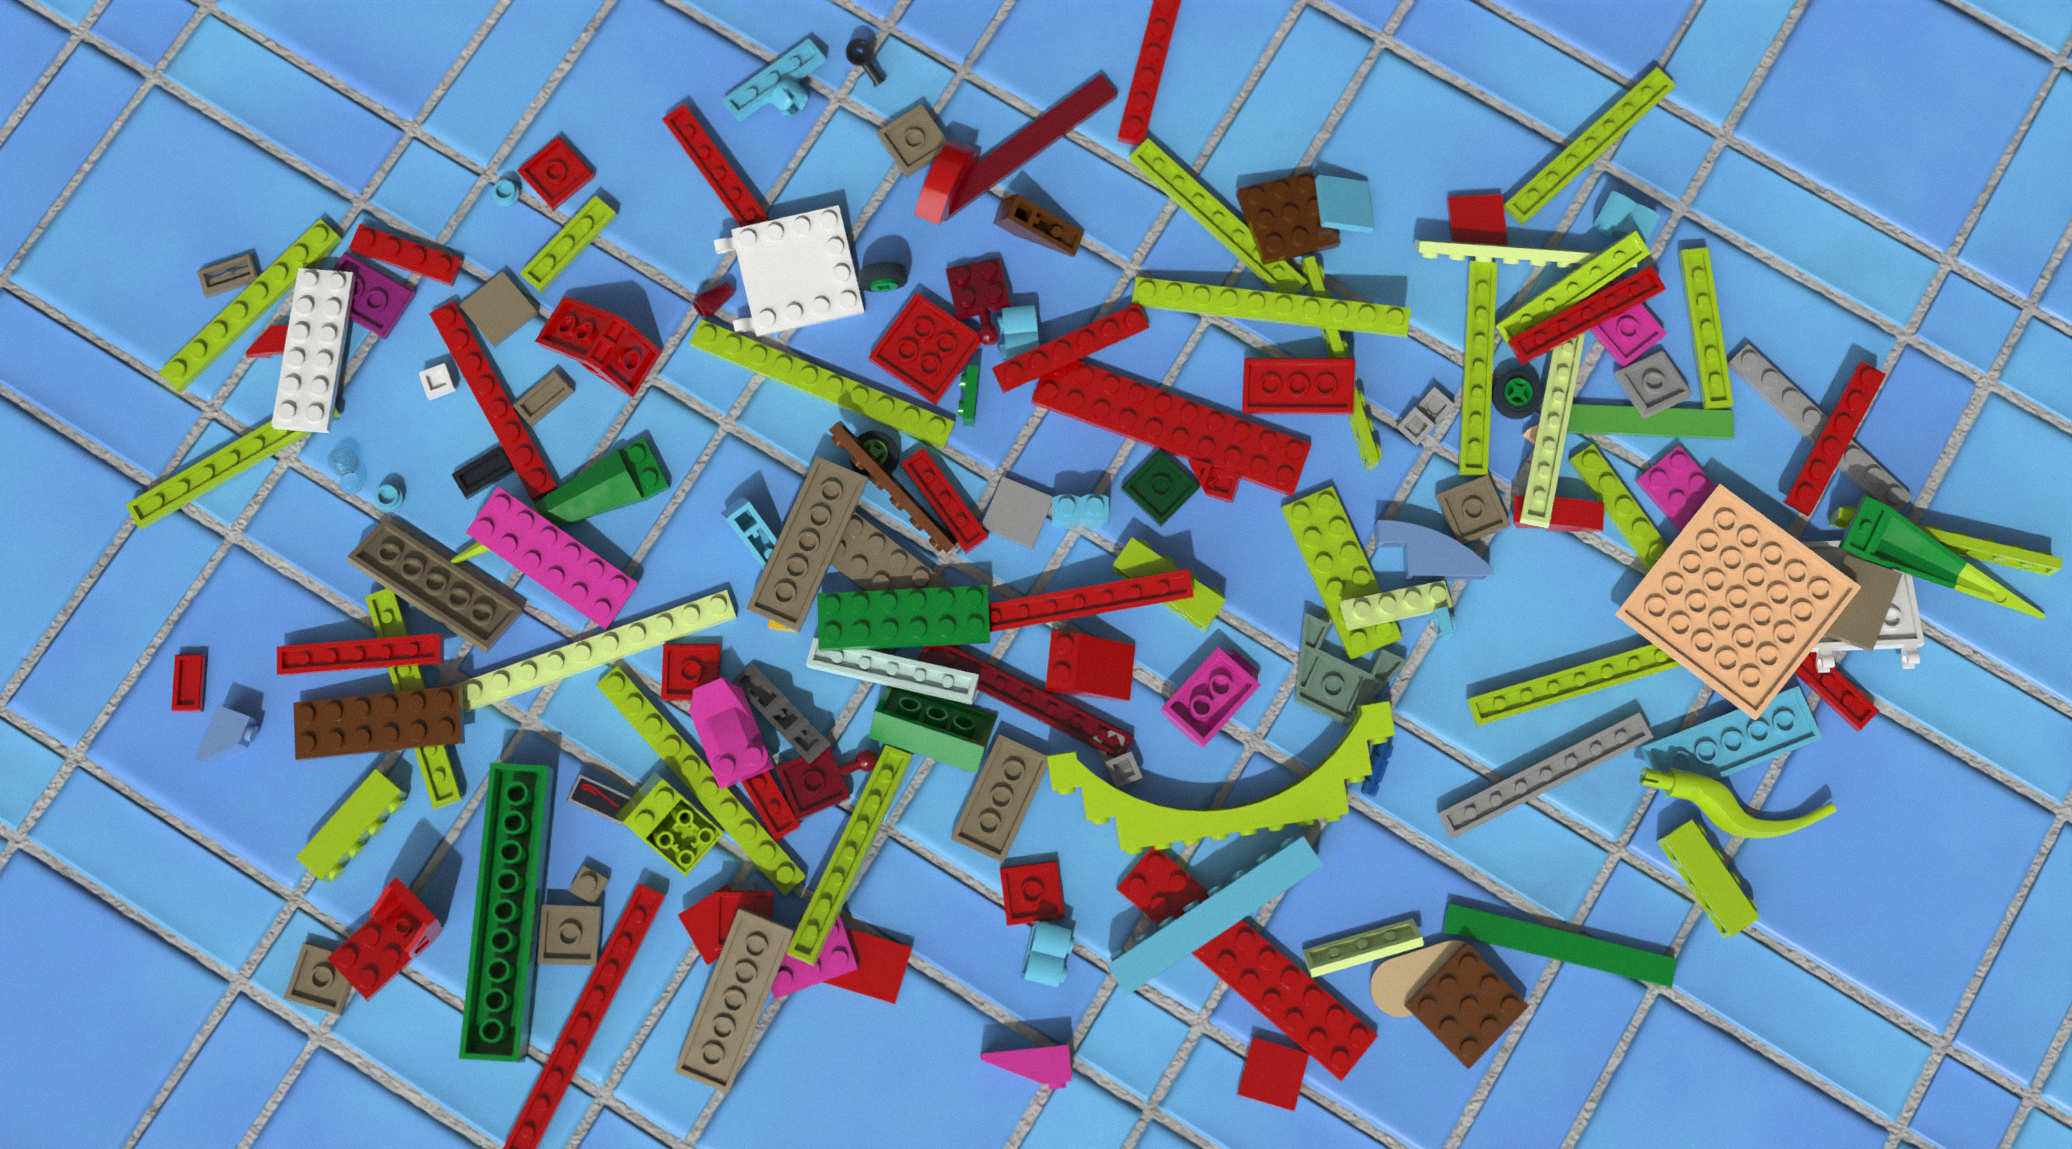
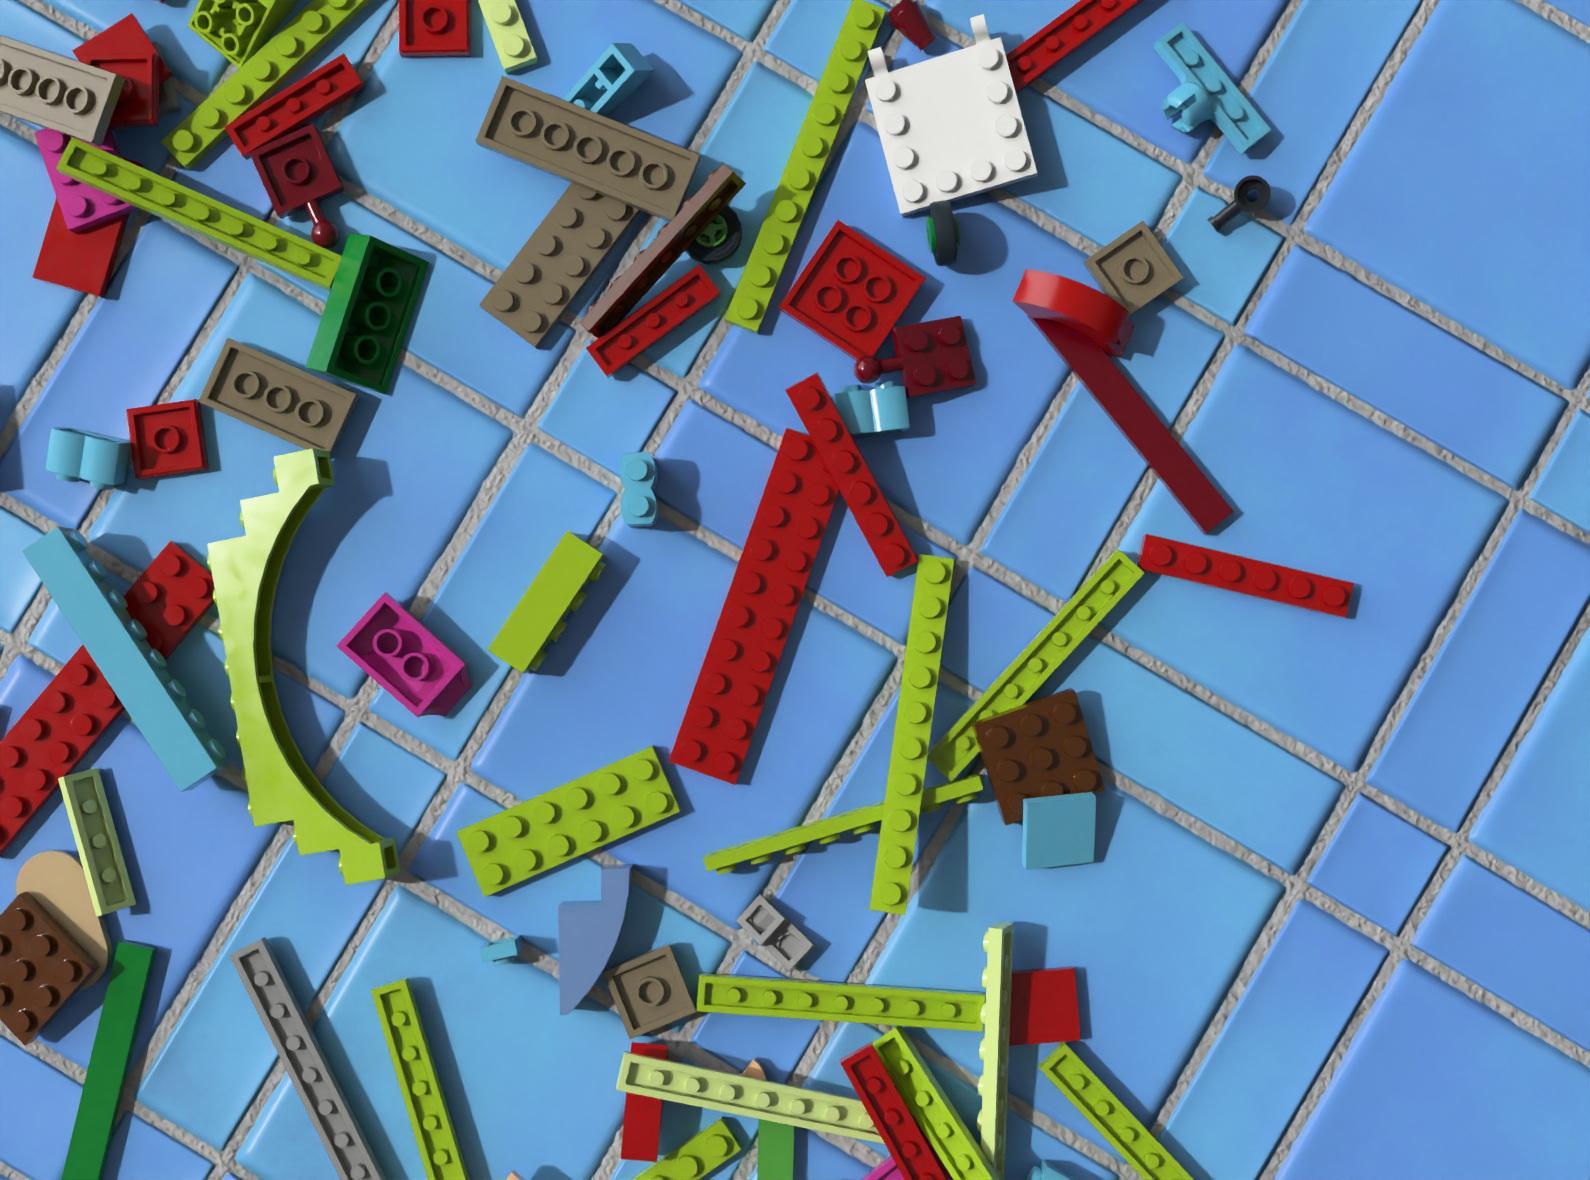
camera: 95 degrees right, 10 degrees up
(728, 732) = (349, 65): dark pink slope -> none
(781, 713) = (381, 129): dark grey slope -> none
(896, 672) = (433, 262): light aqua plate -> none
(903, 618) = (496, 272): green plate -> none
(967, 407) = (776, 348): green plate -> none
(1017, 513) = (641, 413): light grey tile -> none
(1031, 700) = (406, 428): dark red tile -> none
(1037, 225) = (1019, 432): reddish brown slope -> none
(1089, 666) = (442, 504): red slope -> none
(1090, 600) = (517, 491): red plate -> none
(1123, 768) = (330, 541): light grey slope -> none
(1160, 488) = (676, 593): dark green tile -> none
(1216, 482) = (685, 662): red slope -> none
(1299, 386) = (807, 769): red tile -> none
(1332, 684) = (423, 809): sand green wing -> none
(1378, 766) = (315, 862): blue axle -> none
(1395, 605) = (522, 889): yellowish green plate -> none
(1523, 386) = (813, 1062): black wheel -> none

